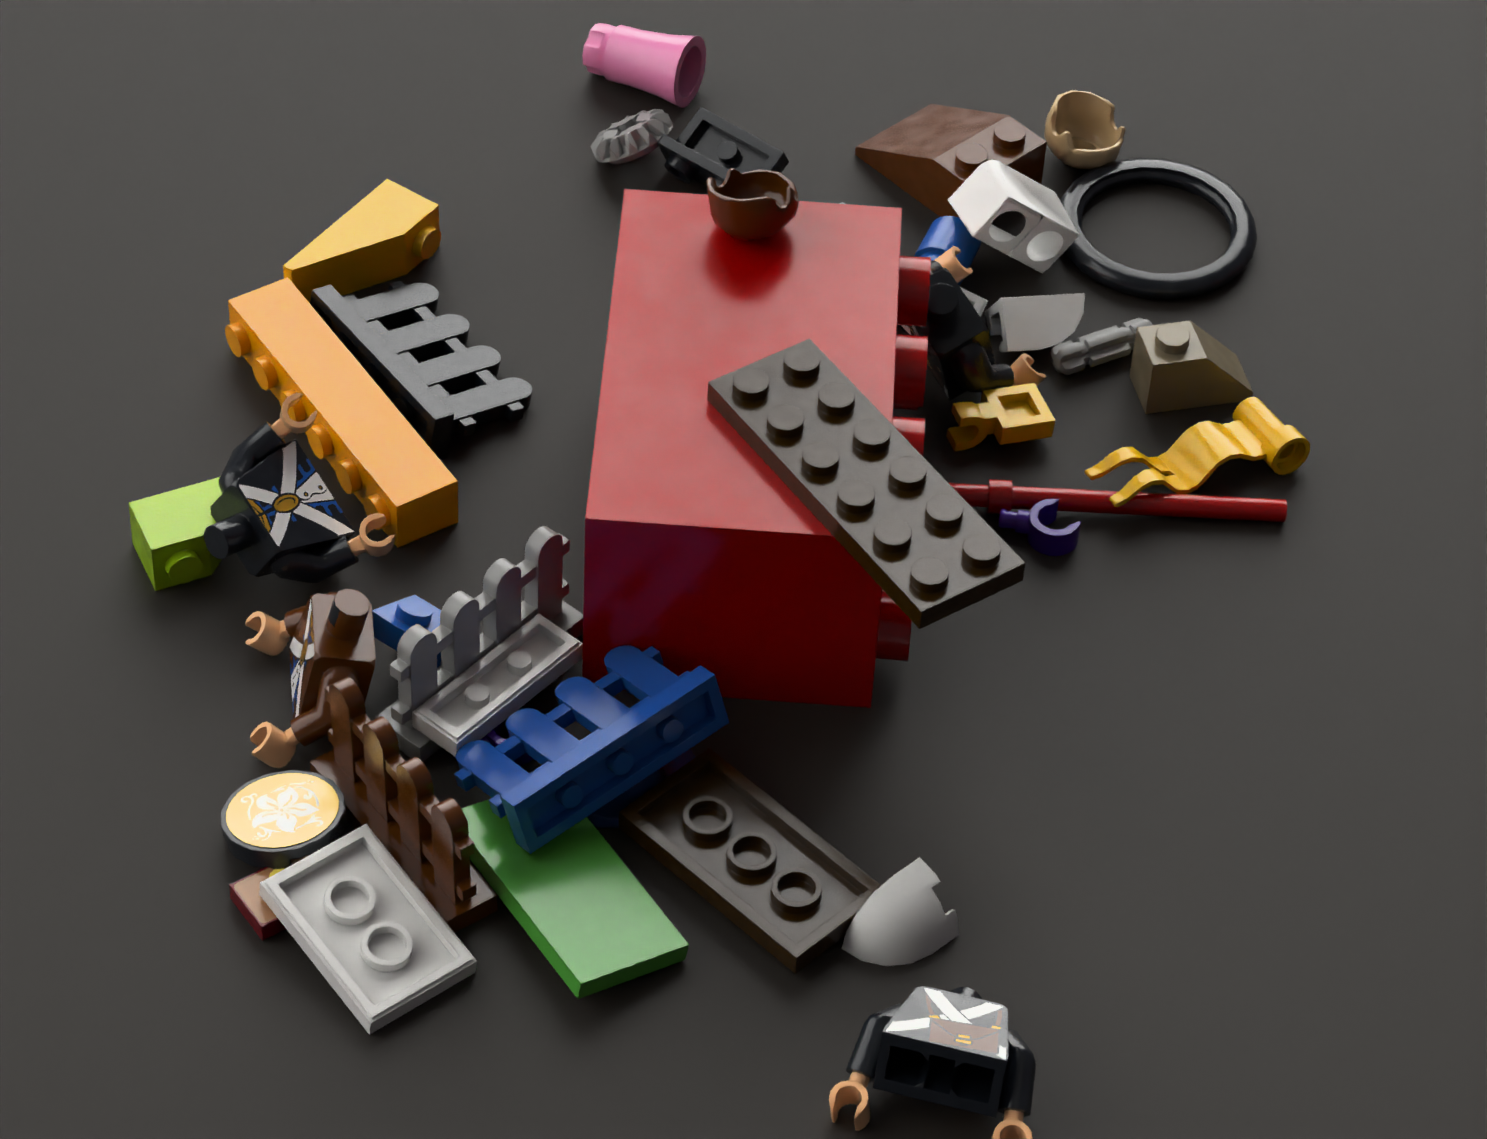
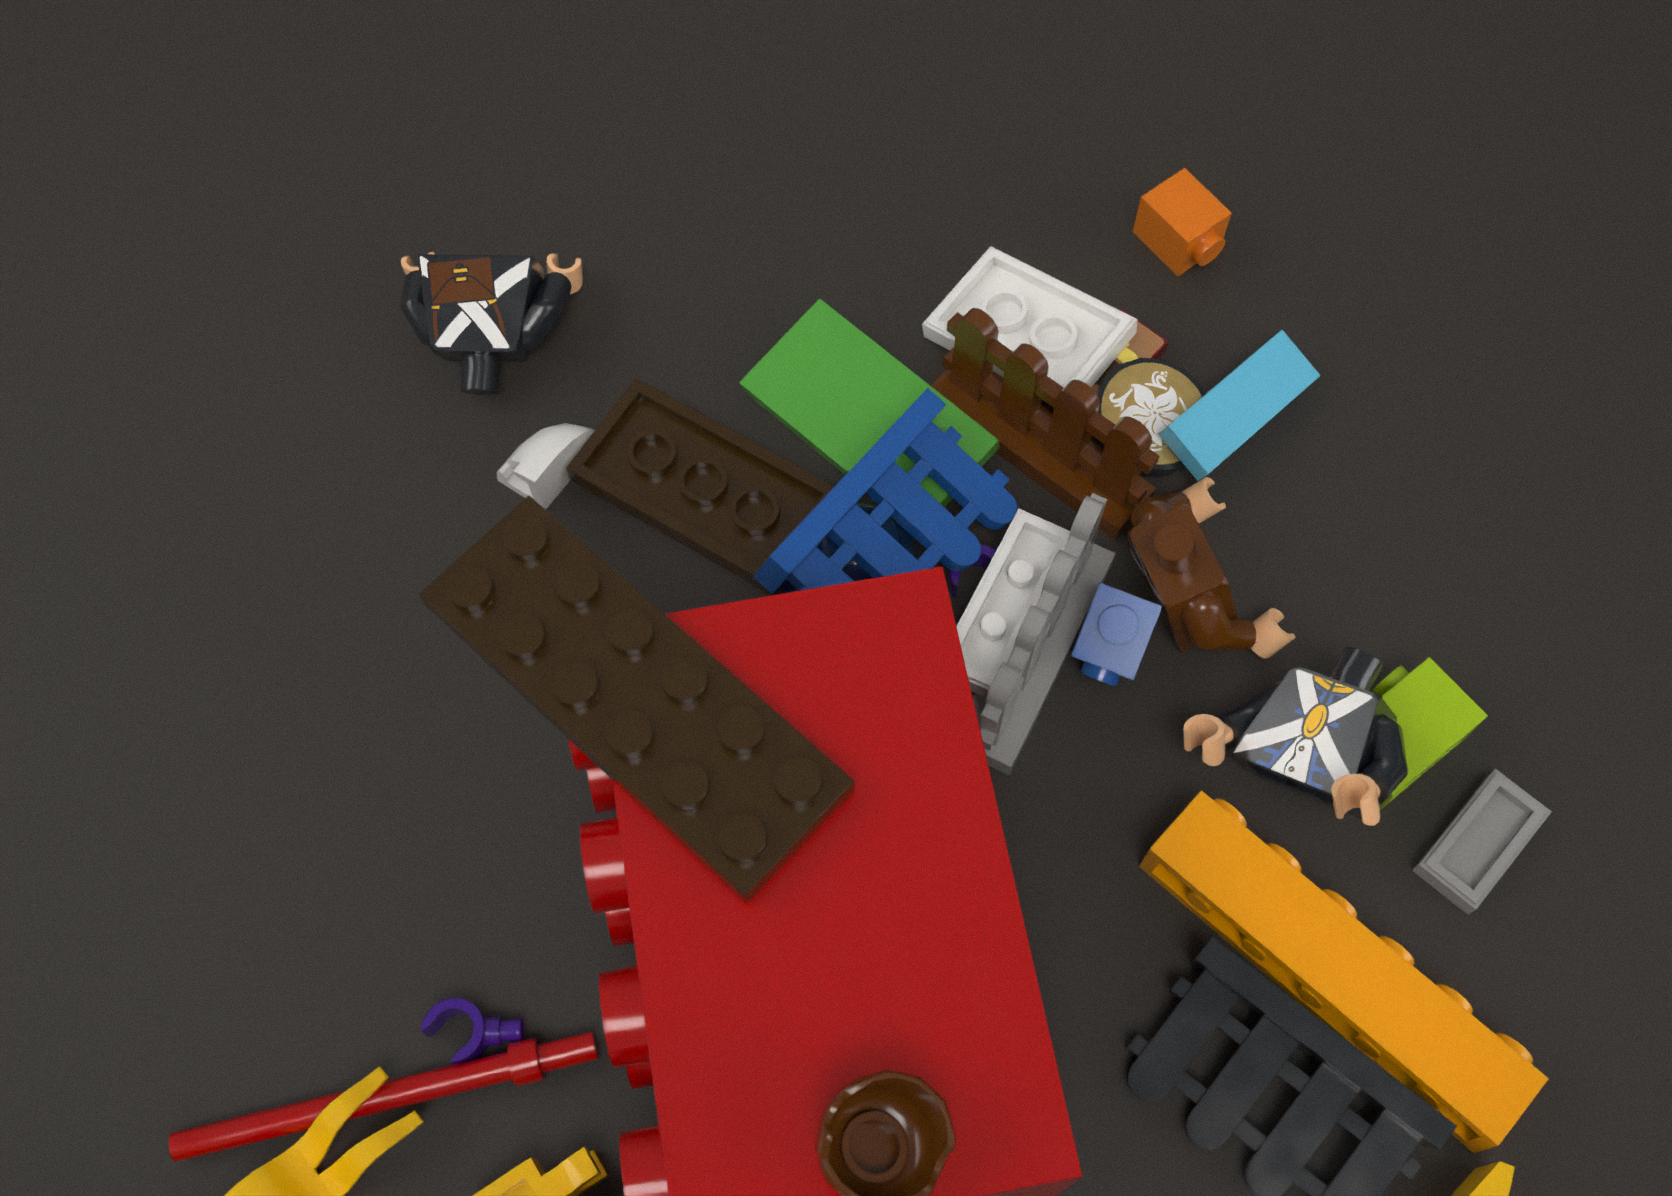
camera: 170 degrees right, 20 degrees up
(155, 989) = (1182, 222): none -> orange brick
(167, 466) = (1481, 841): none -> light grey tile
(192, 802) = (1239, 405): none -> medium azure tile

